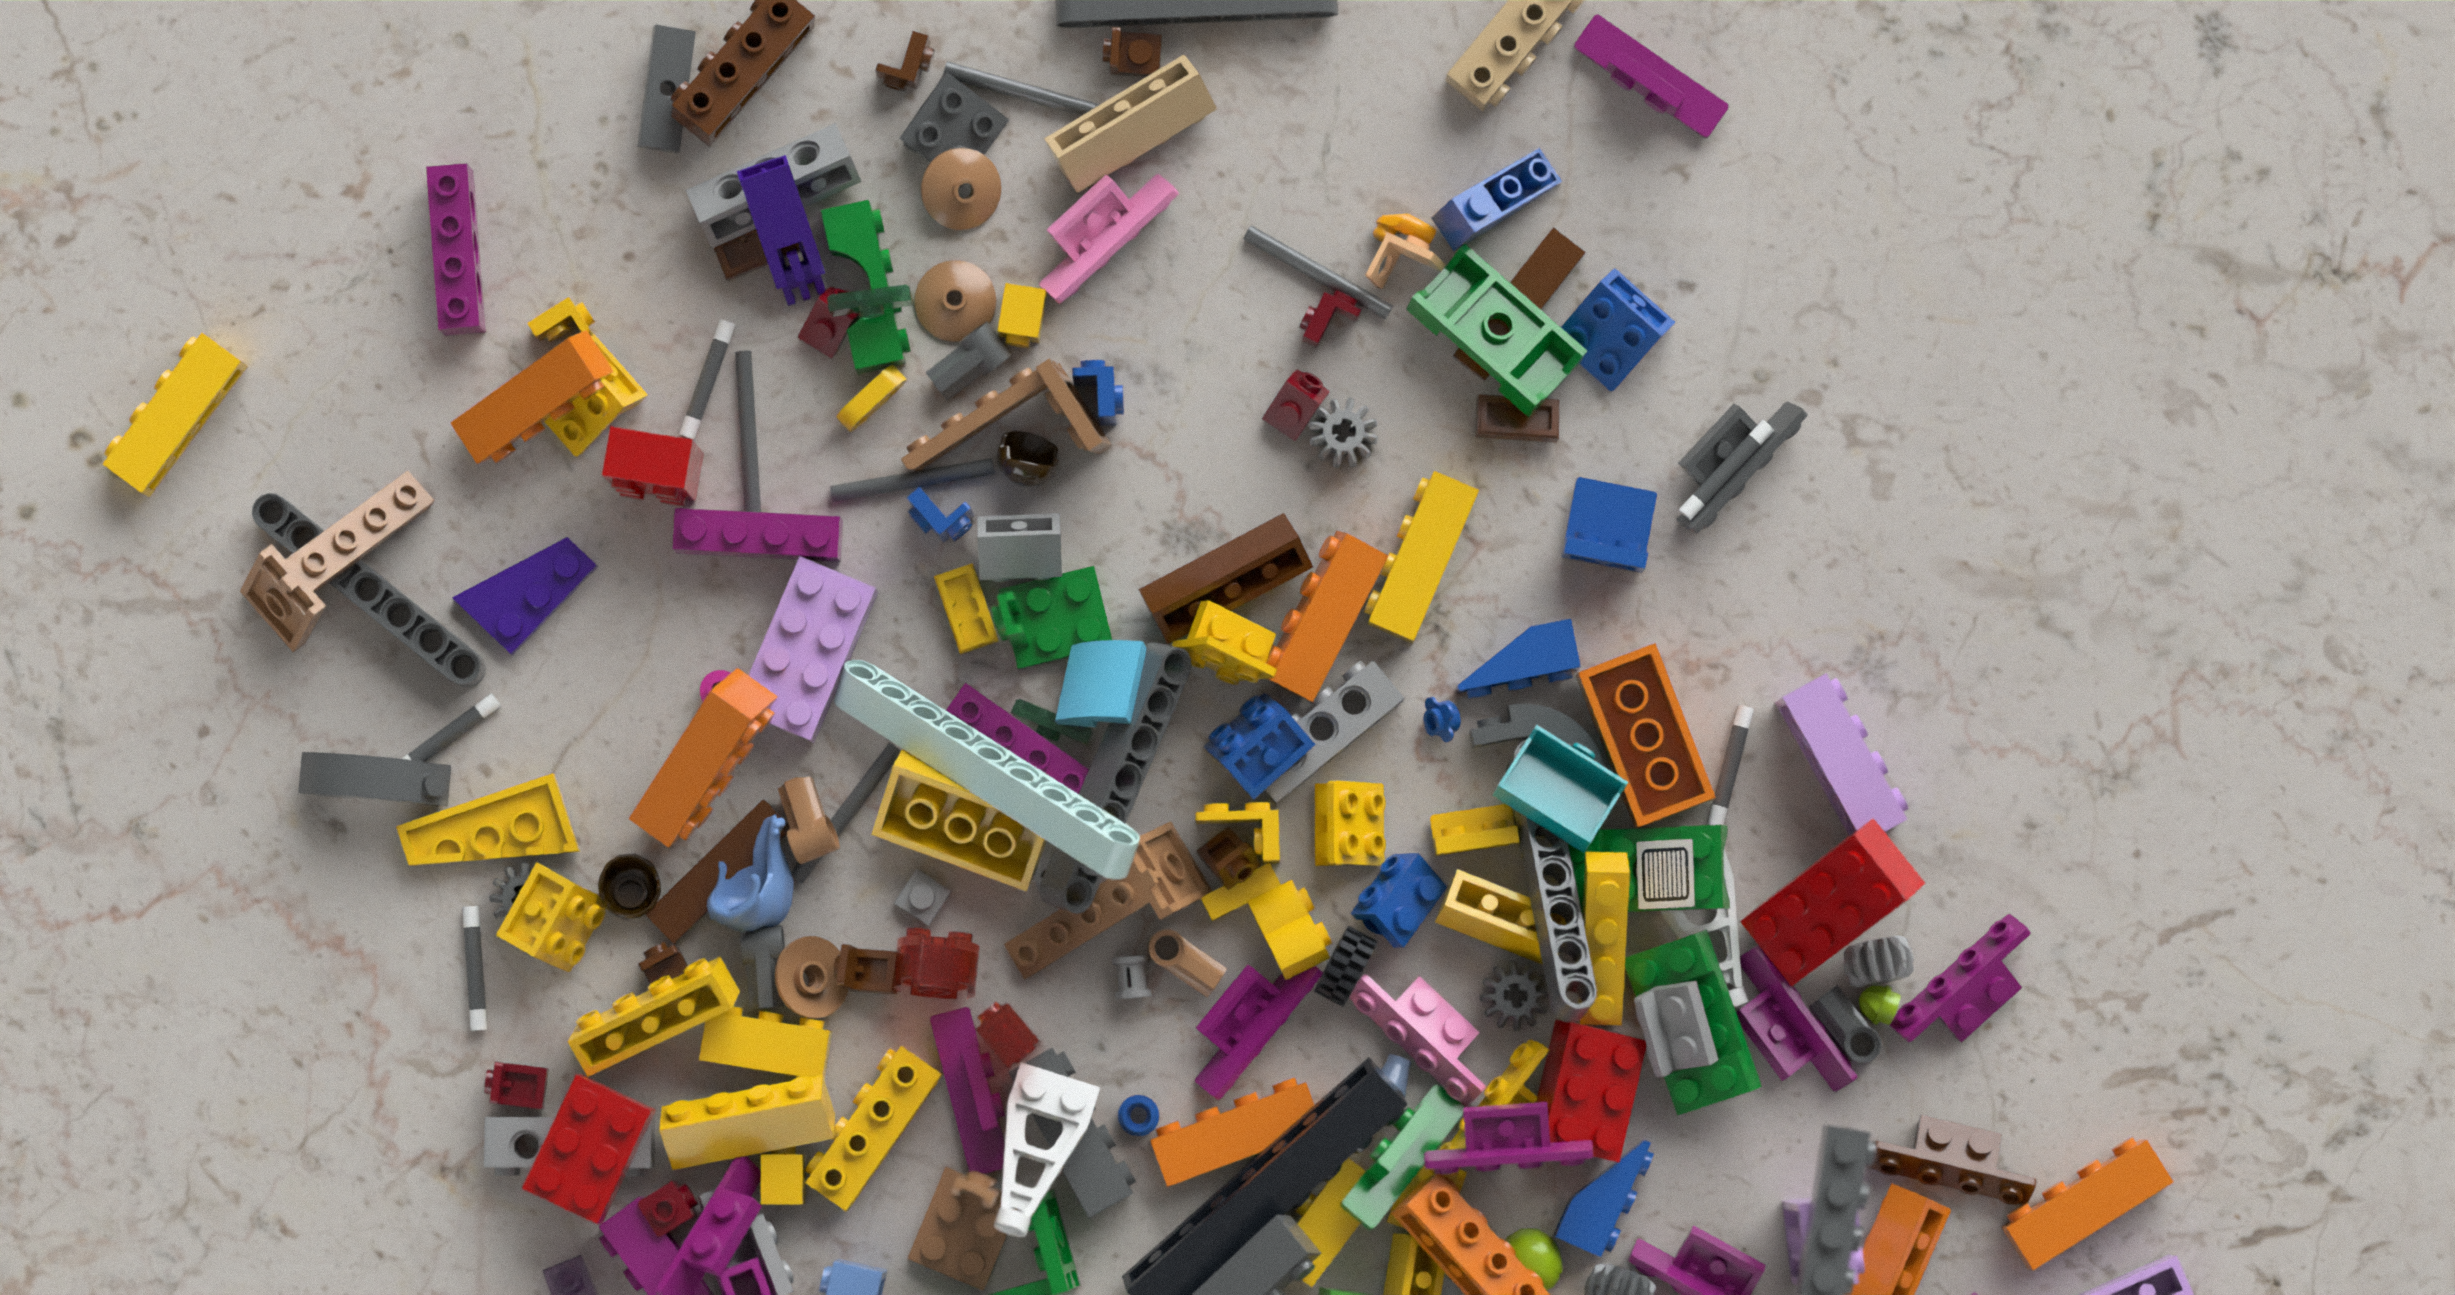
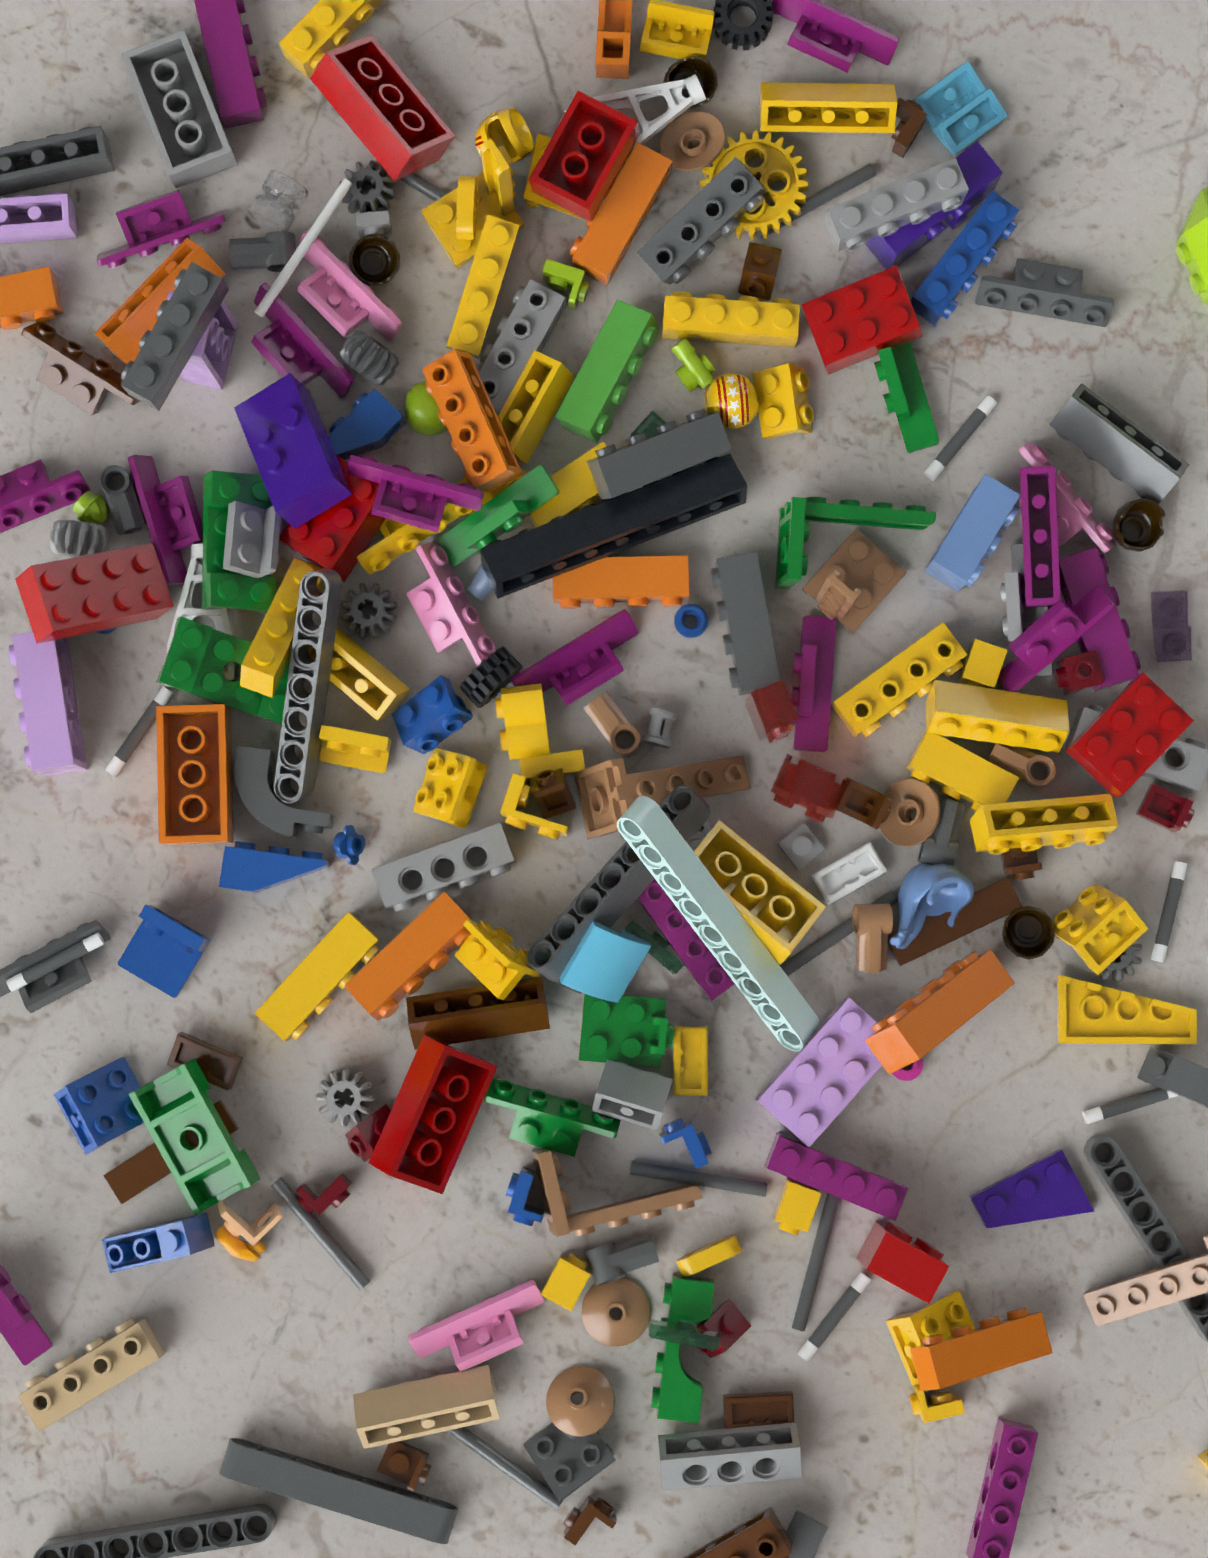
camera: 160 degrees left, 0 degrees up
(704, 1079) = (1018, 762): none -> medium nougat piece
(780, 223) = (734, 1423): dark purple hinge -> none
(791, 485) = (796, 1207): none -> yellow brick
(857, 884) = (848, 873): none -> white plate
(1027, 458) = (601, 1163): dark brown hair -> none
(1053, 1098) = (754, 651): white plate -> none
(1105, 488) = (548, 1119): none -> green bracket
(1236, 446) = (432, 1115): none -> red brick
(1259, 744) = (498, 872): blue bracket -> none
(1560, 788) = (273, 754): teal container -> none
(1665, 874) = (216, 659): white sticker -> none
(1666, 1147) = (292, 451): none -> dark purple brick

